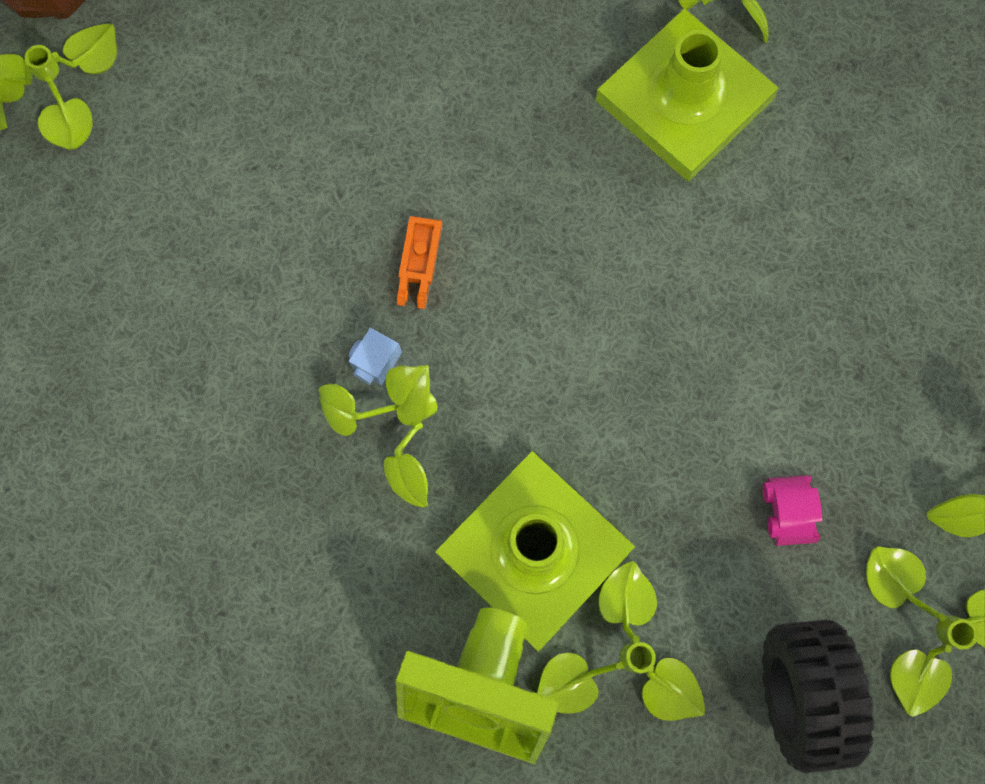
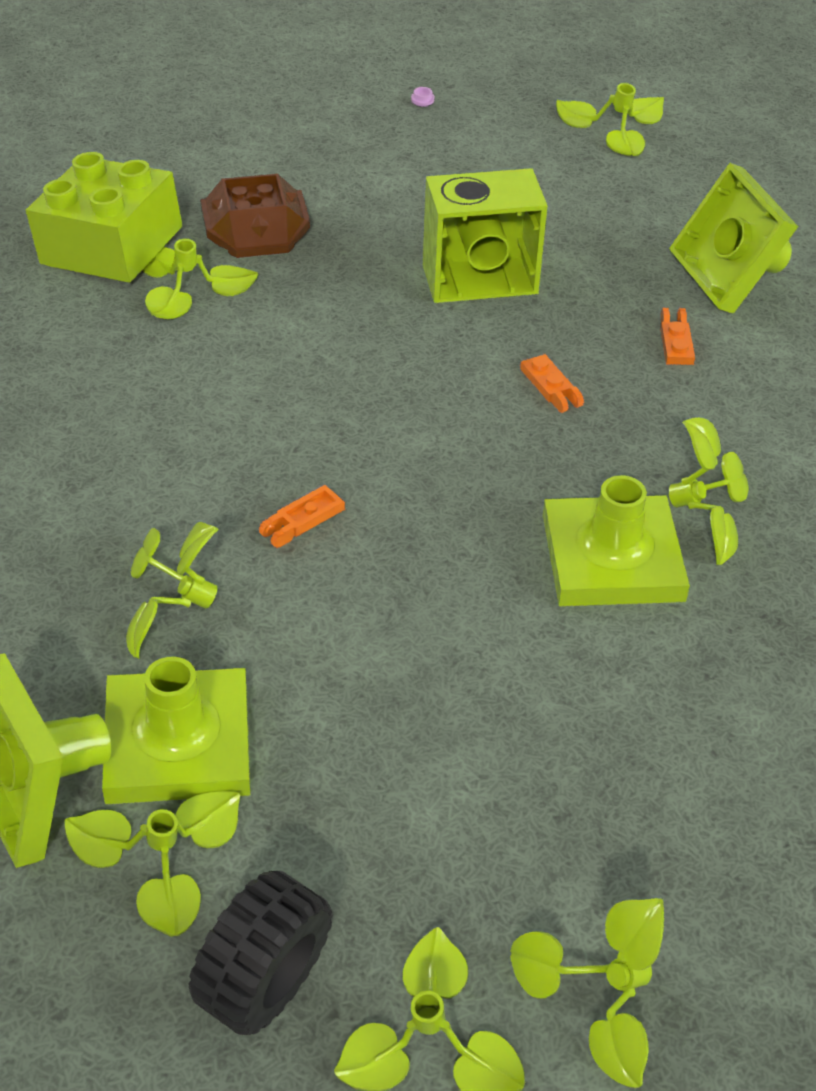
camera: 35 degrees right, 30 degrees down
(373, 357) = (214, 551): light blue brick -> none
(794, 510) = (398, 858): dark pink cylinder -> none

